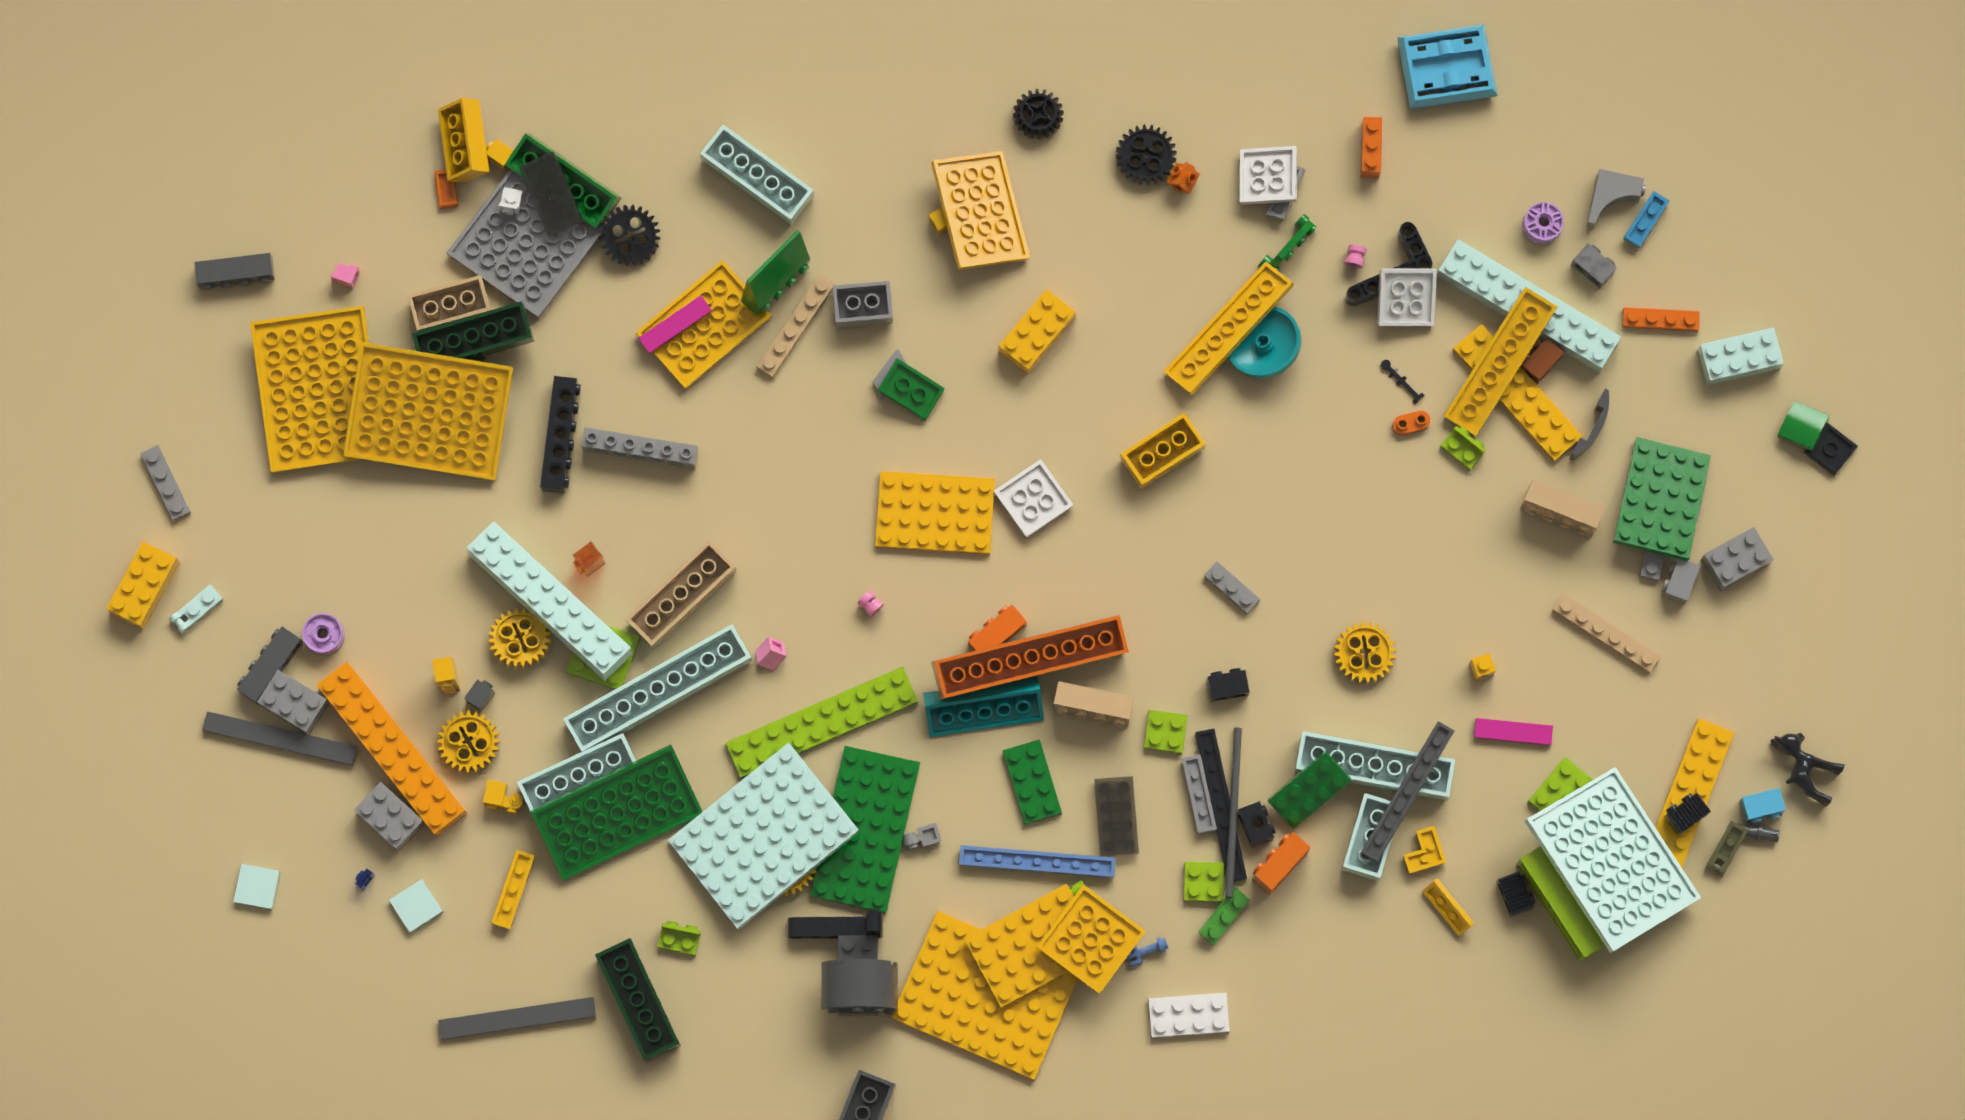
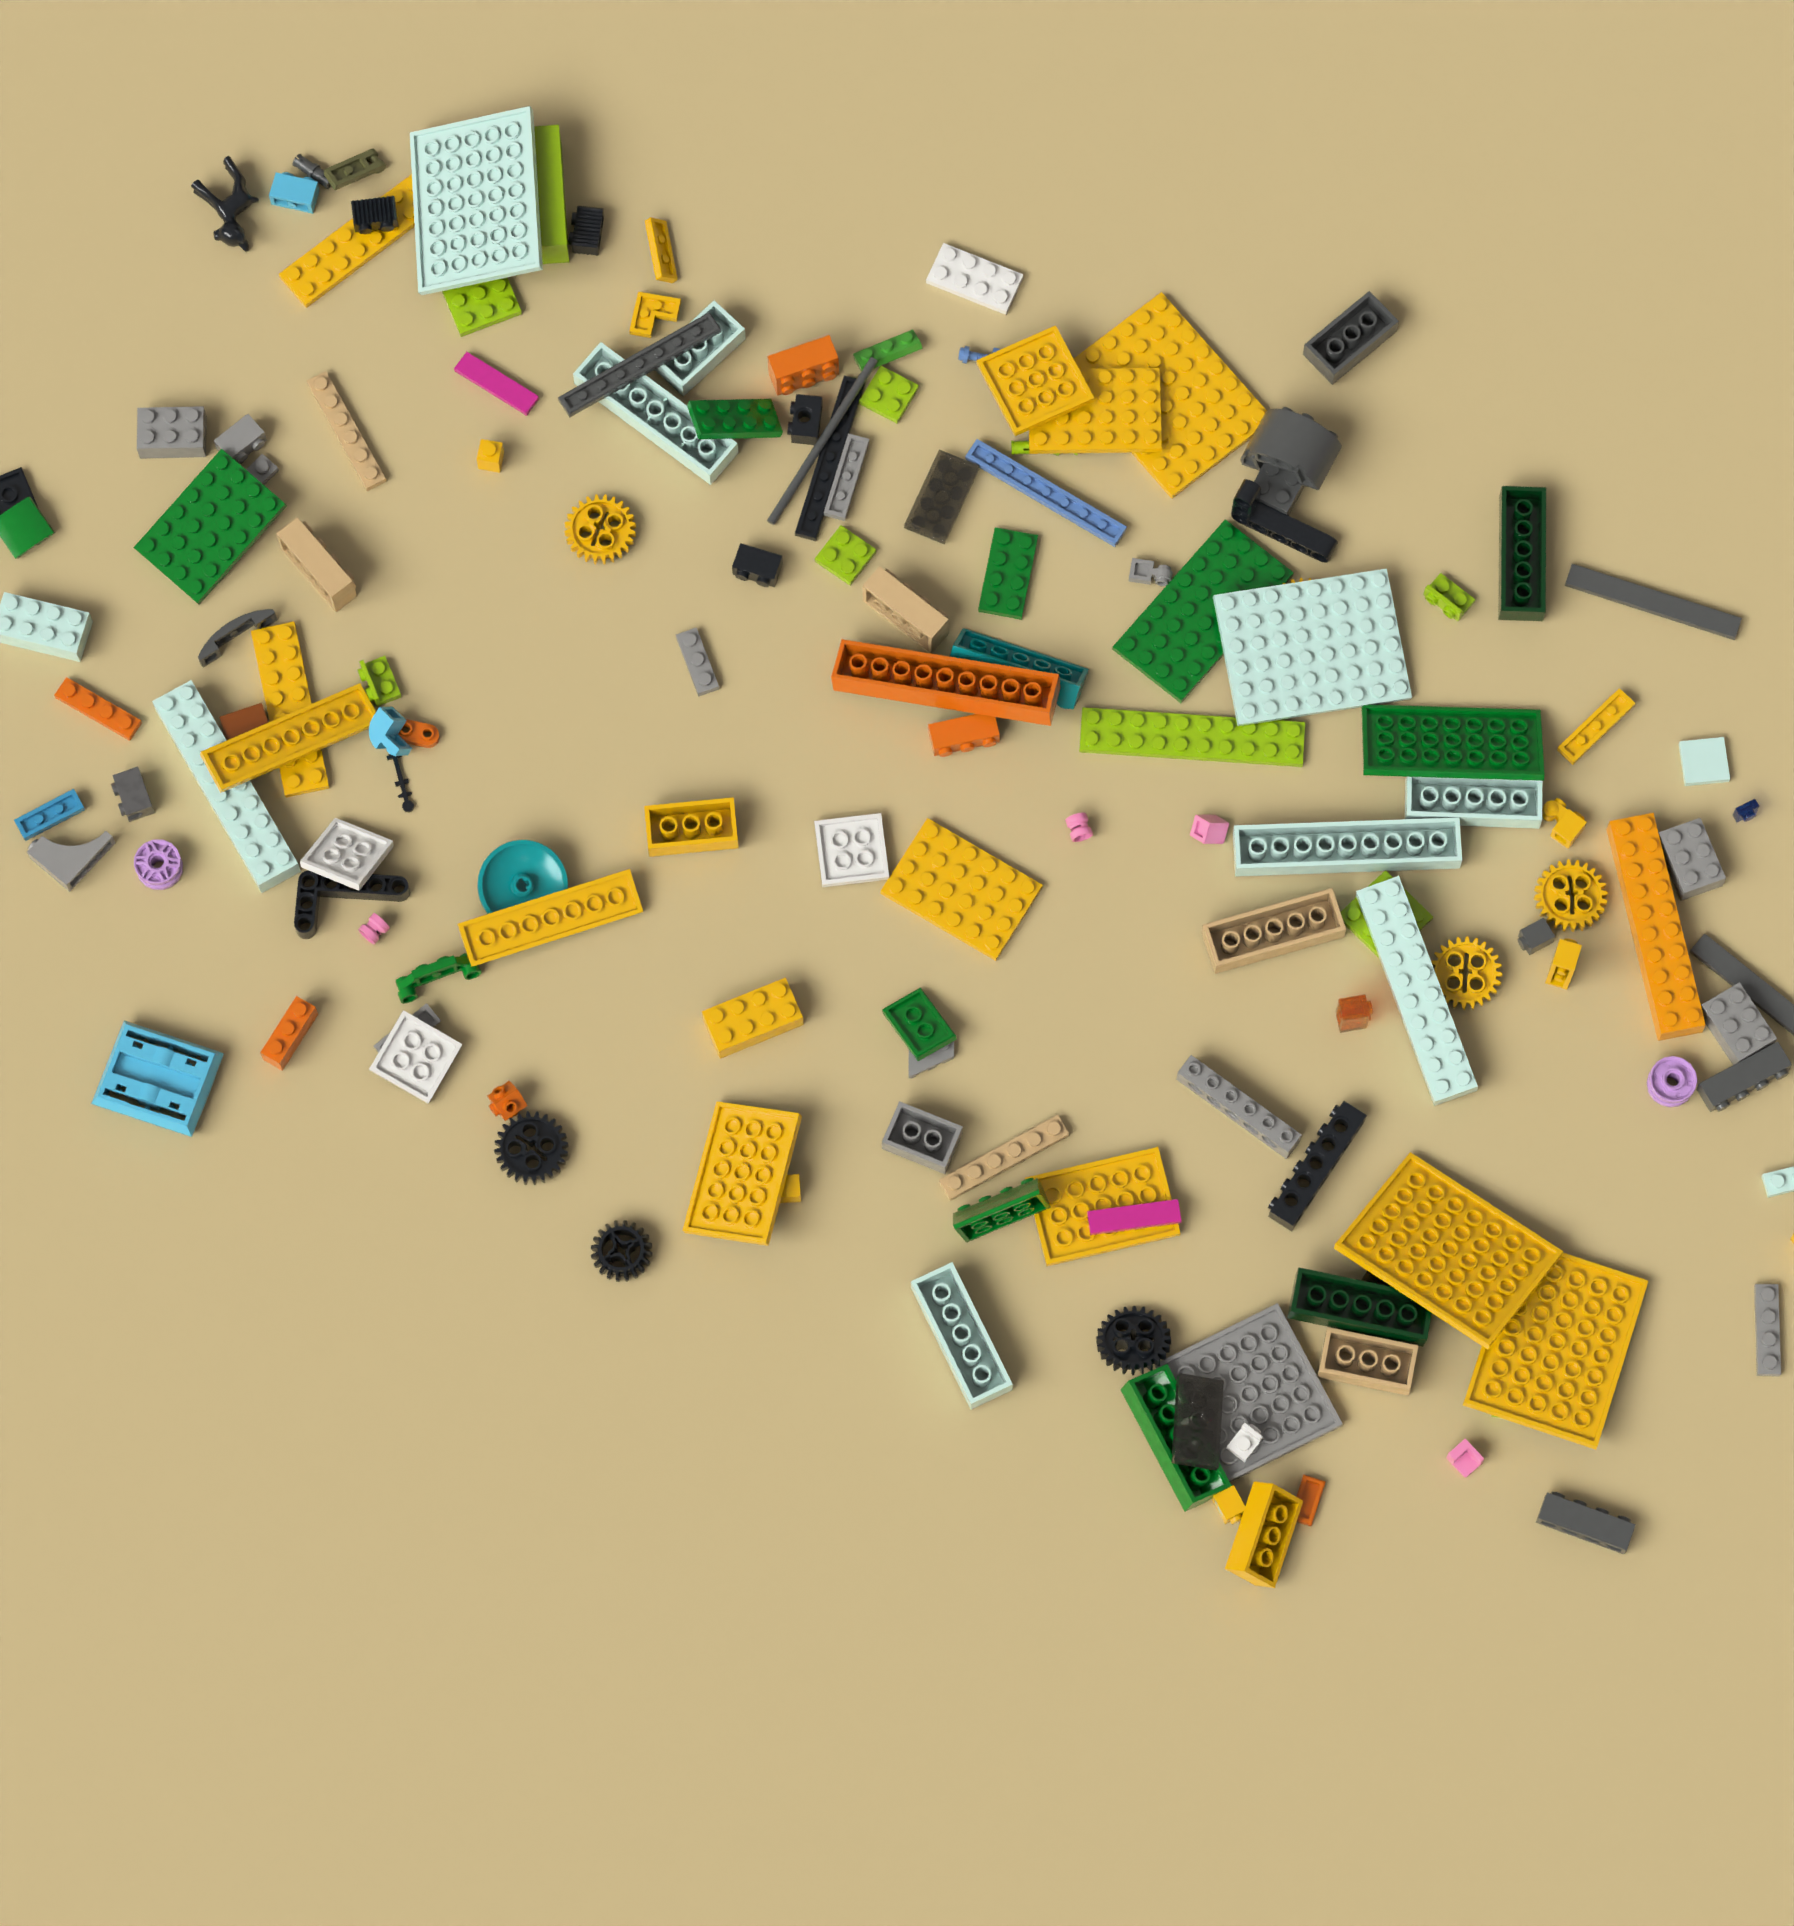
camera: 150 degrees left, 5 degrees down
(1433, 404) = (385, 729): none -> medium azure brick

